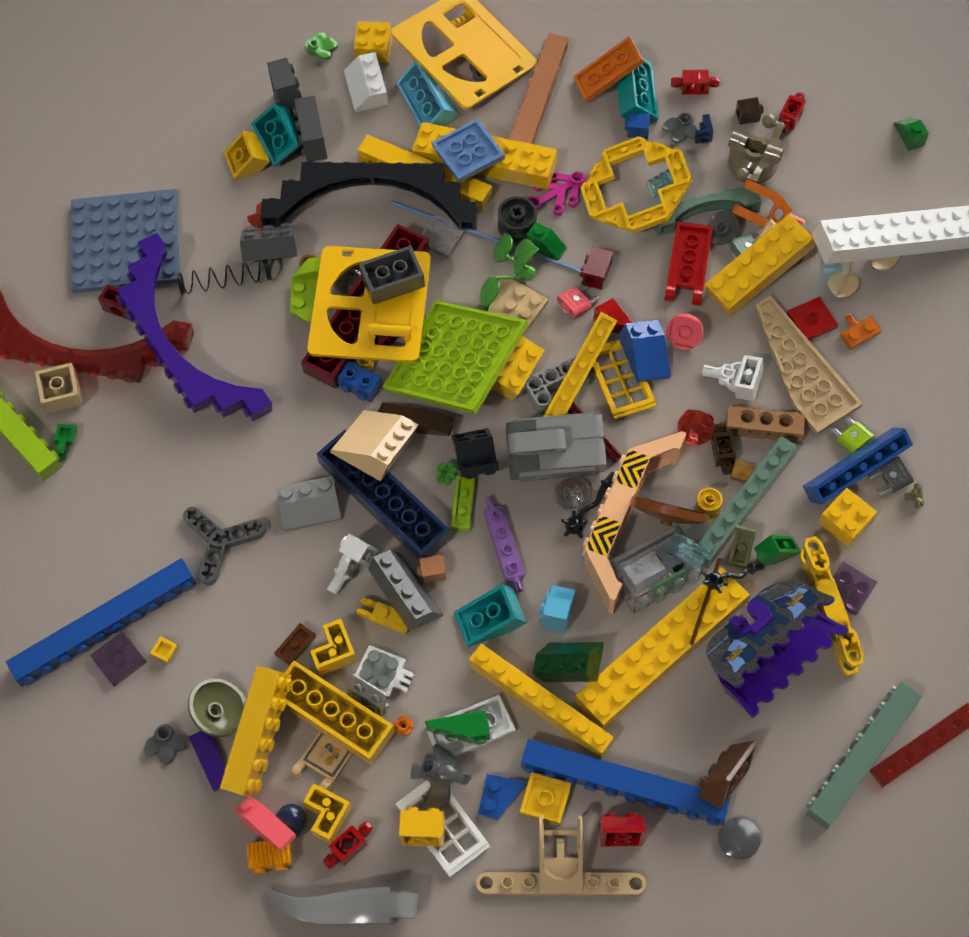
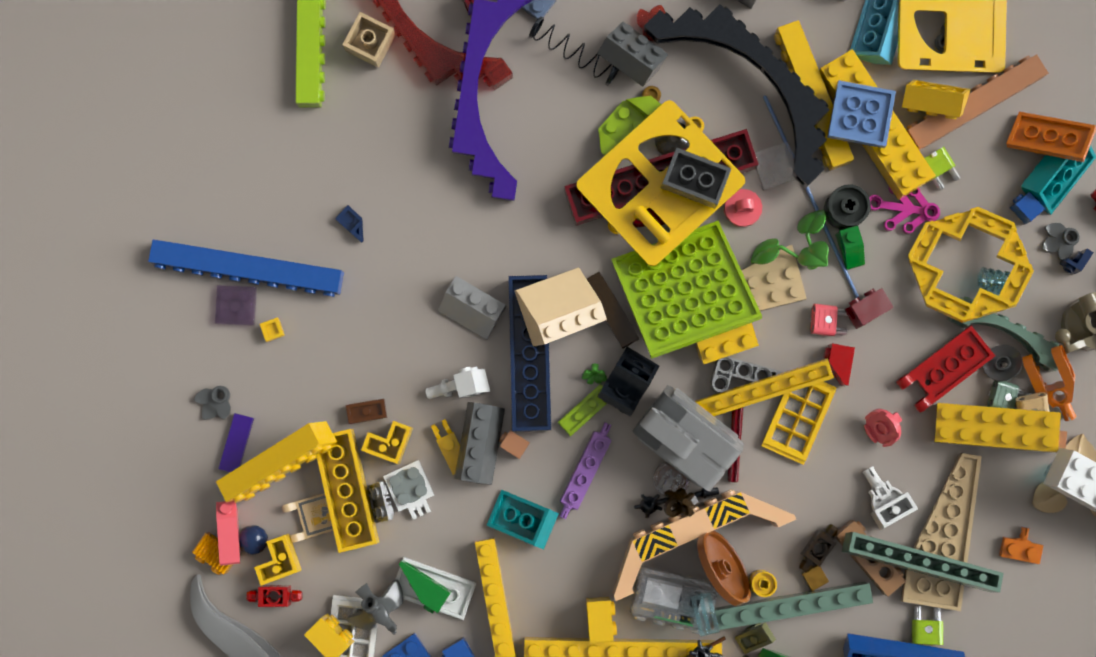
camera: 40 degrees right, 20 degrees up
(64, 436) = (342, 85): green plate -> none
(159, 524) = (352, 222): none -> dark blue slope
(211, 538) = (375, 279): dark grey piece -> none
(221, 698) = (278, 420): olive dish -> none
(359, 381) = (597, 239): blue brick -> none
(403, 730) = (388, 538): orange plate -> none
(445, 280) = (743, 208): none -> coral tile
(509, 107) = (935, 99): none -> yellow slope
(557, 608) = (576, 560): medium azure brick -> none
(559, 144) = (940, 163): none -> lime piece
(569, 662) = (544, 609): dark green slope -> none
(594, 495) = (680, 502): none -> dark brown hips
(616, 629) = (599, 619): none -> yellow brick
(645, 350) = (837, 415): blue slope -> none
(697, 426) = (815, 510): clear red dish -> none
(800, 388) = (922, 562): none -> sand green brick
(812, 318) = (995, 504): red plate -> none

